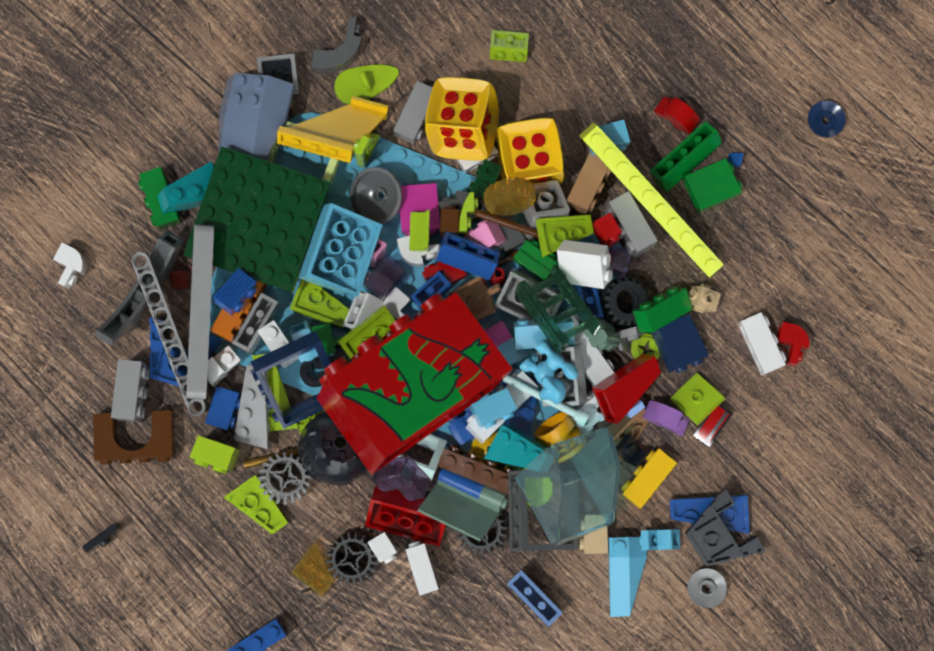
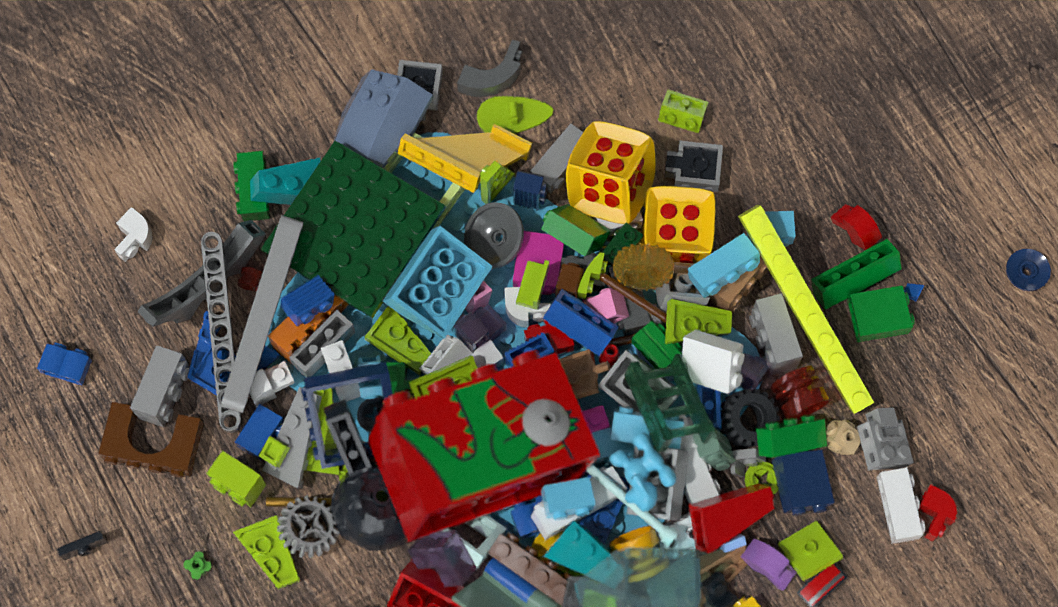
camera: 15 degrees right, 10 degrees down
(43, 390) = (64, 364): none -> blue brick
(207, 530) = (196, 573): none -> bright green plate
(240, 423) = (274, 451): none -> lime tile
(299, 401) = (347, 438): none -> black brick
(397, 149) = (529, 190): none -> dark blue brick
(444, 175) = (575, 229): none -> green brick
(455, 360) = (545, 432): none -> light grey dish
(530, 93) = (695, 165): none -> piece
(576, 180) = (724, 266): none -> medium azure brick
(607, 230) = (747, 331): red brick -> none
(661, 270) = (799, 390): none -> clear red wheel
(738, 293) = (884, 440): none -> light grey piece

